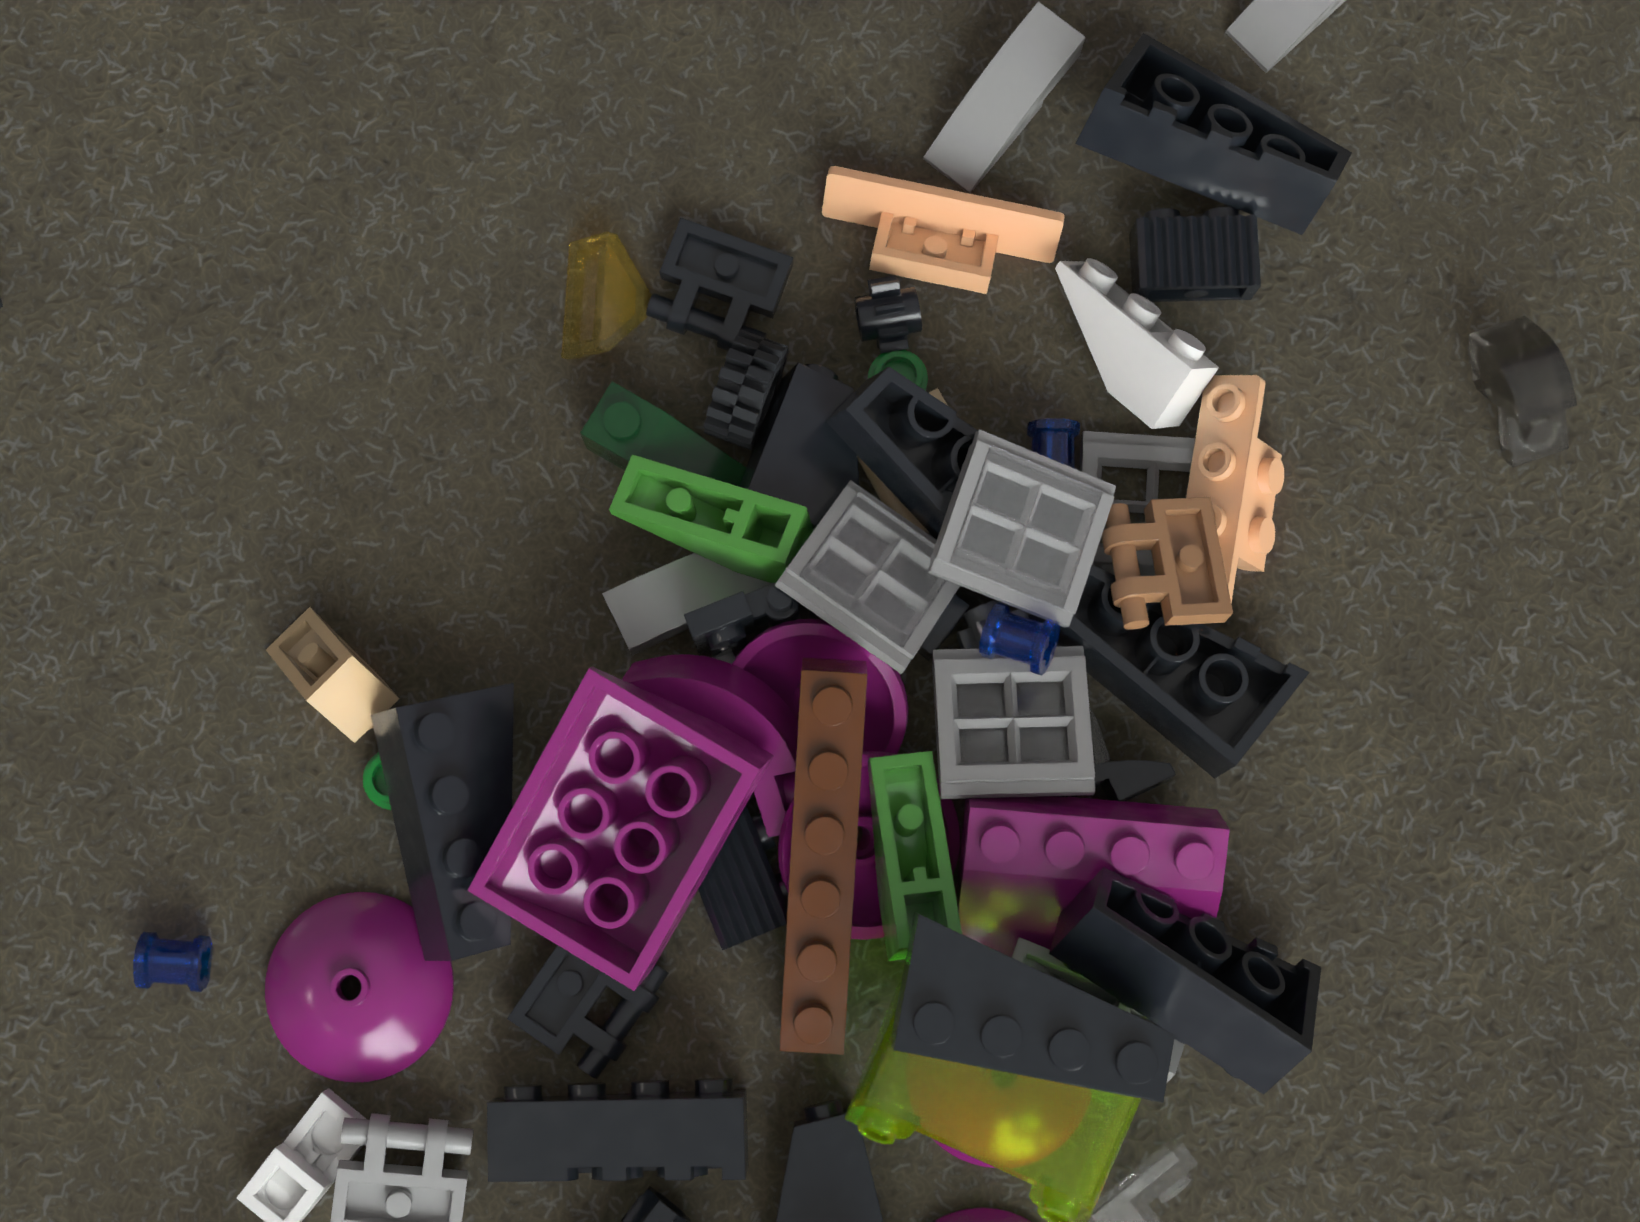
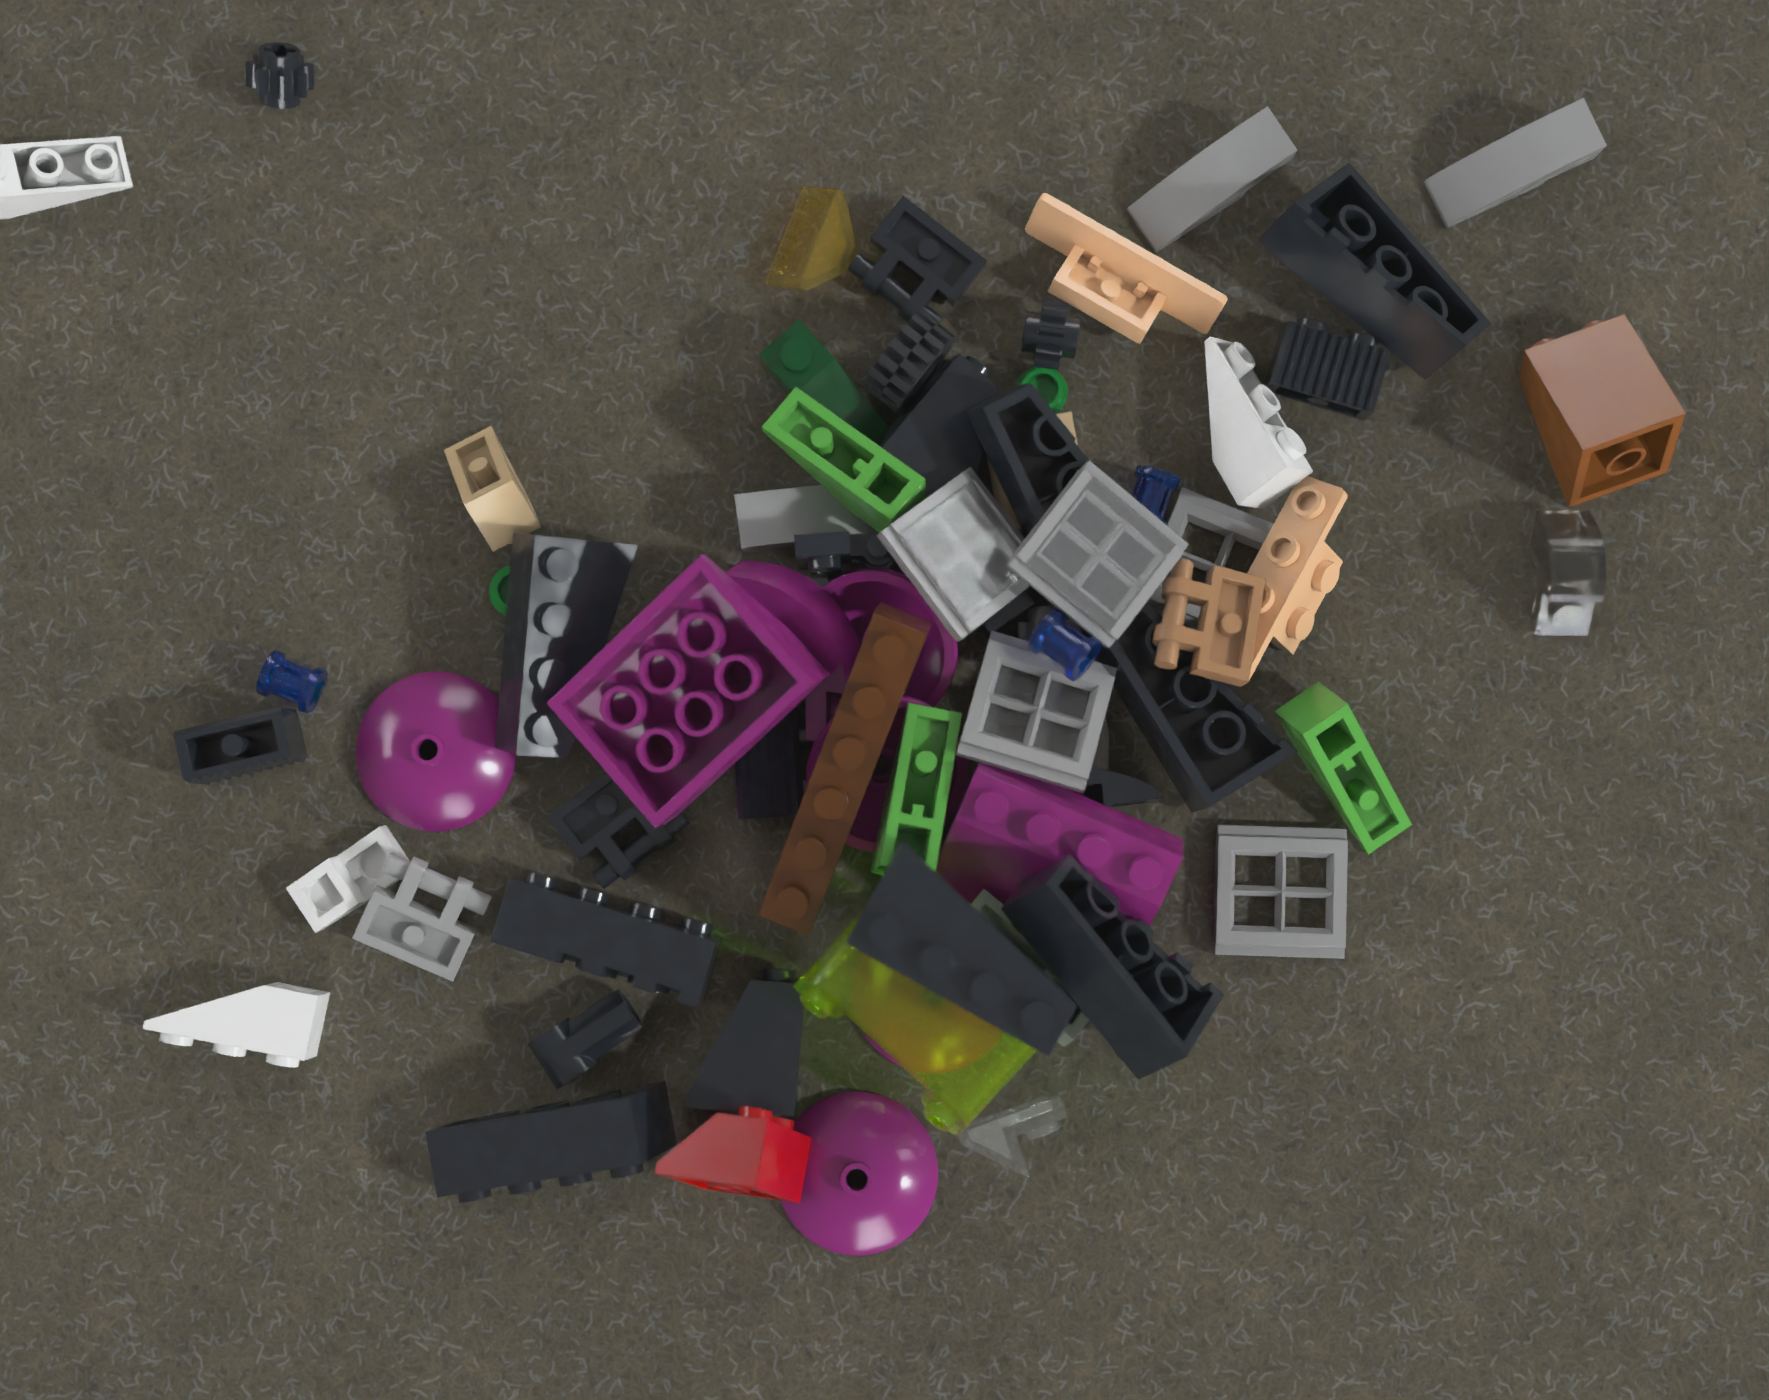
camera: 20 degrees right, 5 degrees up
(135, 1053) = (240, 745): none -> black brick
(1357, 886) = (1278, 939): none -> light grey piece
(1361, 671) = (1343, 765): none -> bright green slope
(1498, 206) = (1601, 409): none -> slope

